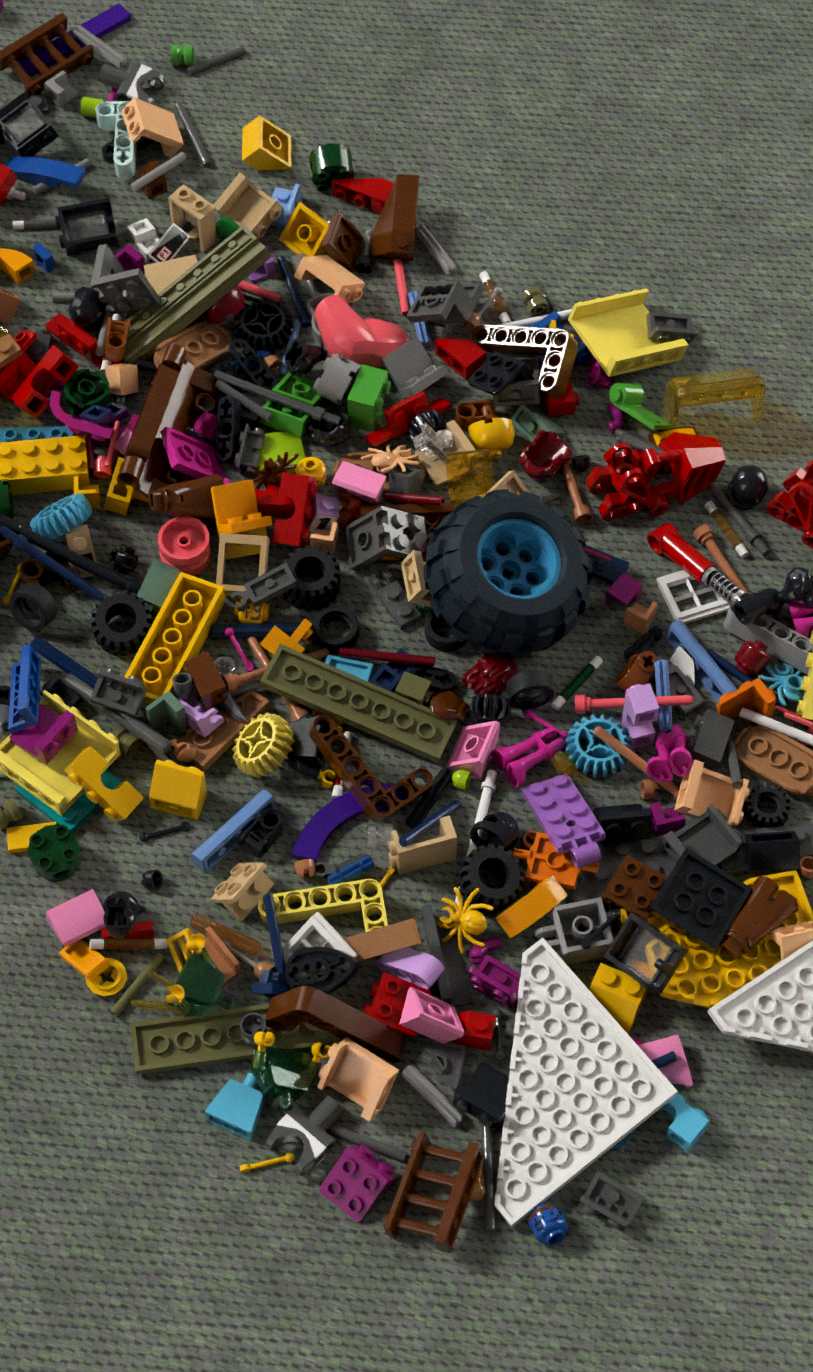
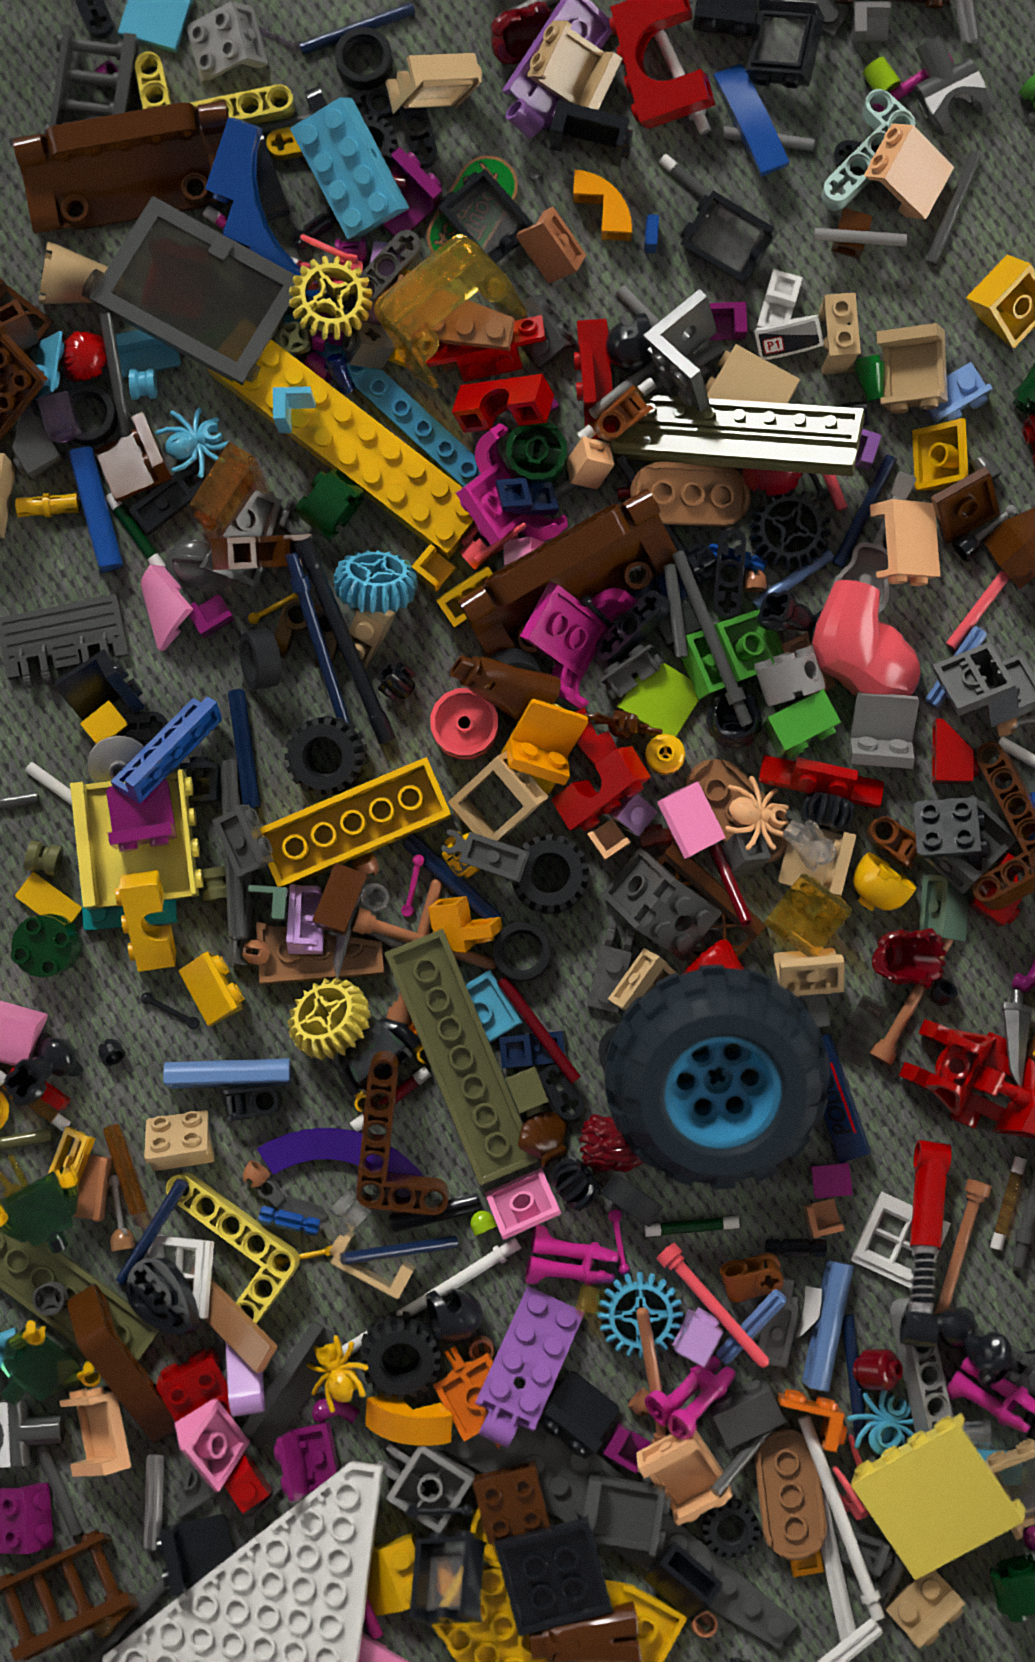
camera: 50 degrees right, 25 degrees up
(157, 585) = (397, 745): sand green panel -> none
(183, 685) = (315, 880): dark grey hose -> none
(269, 984) = (108, 1266): dark blue tile -> none

